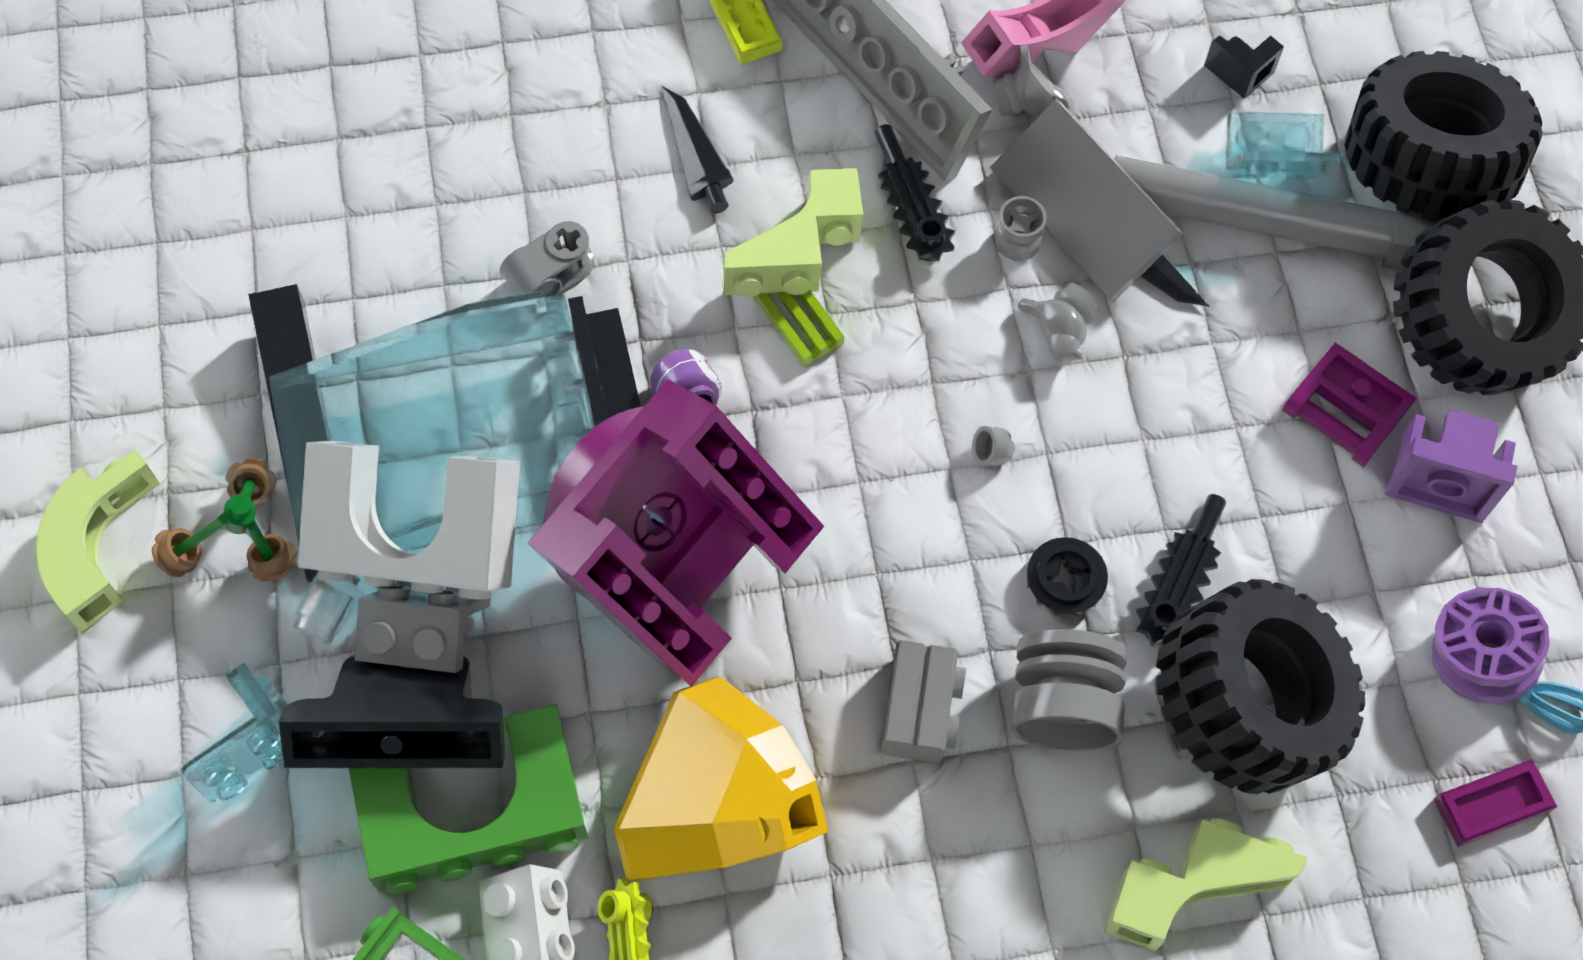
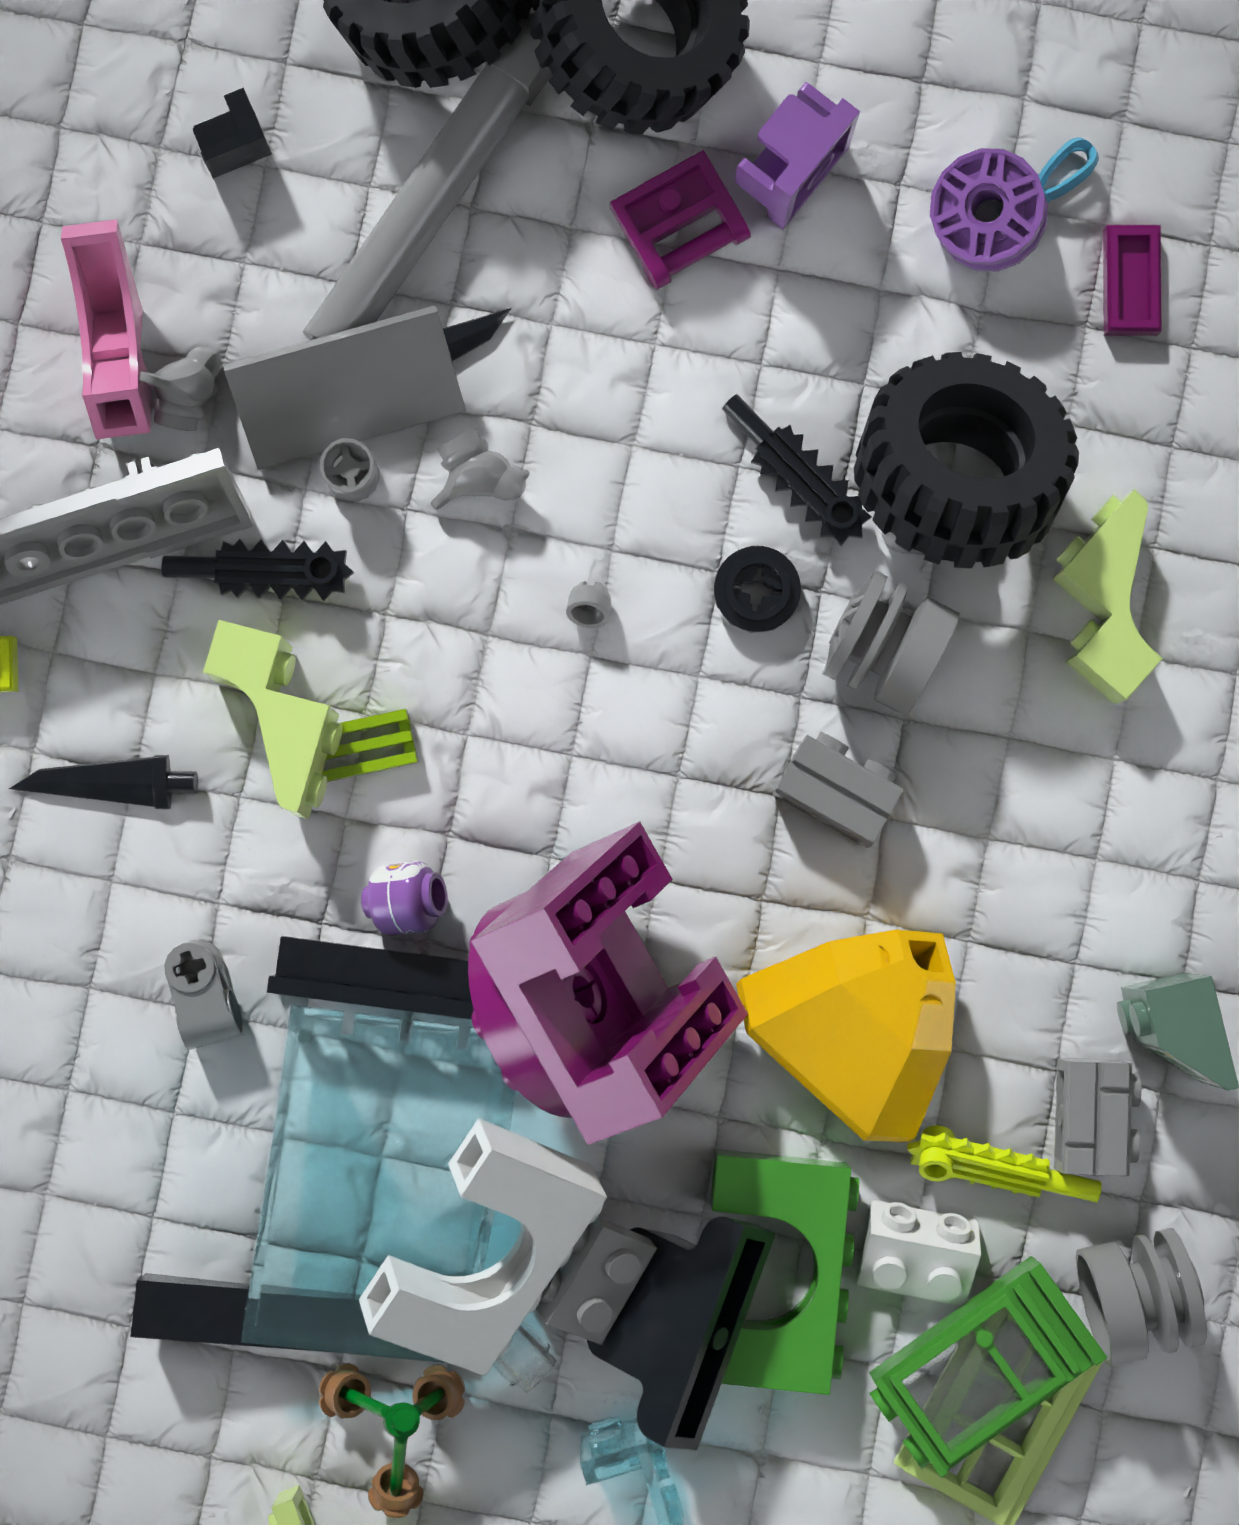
camera: 70 degrees left, 20 degrees up
(1277, 142) = (361, 151): clear light blue bracket -> none

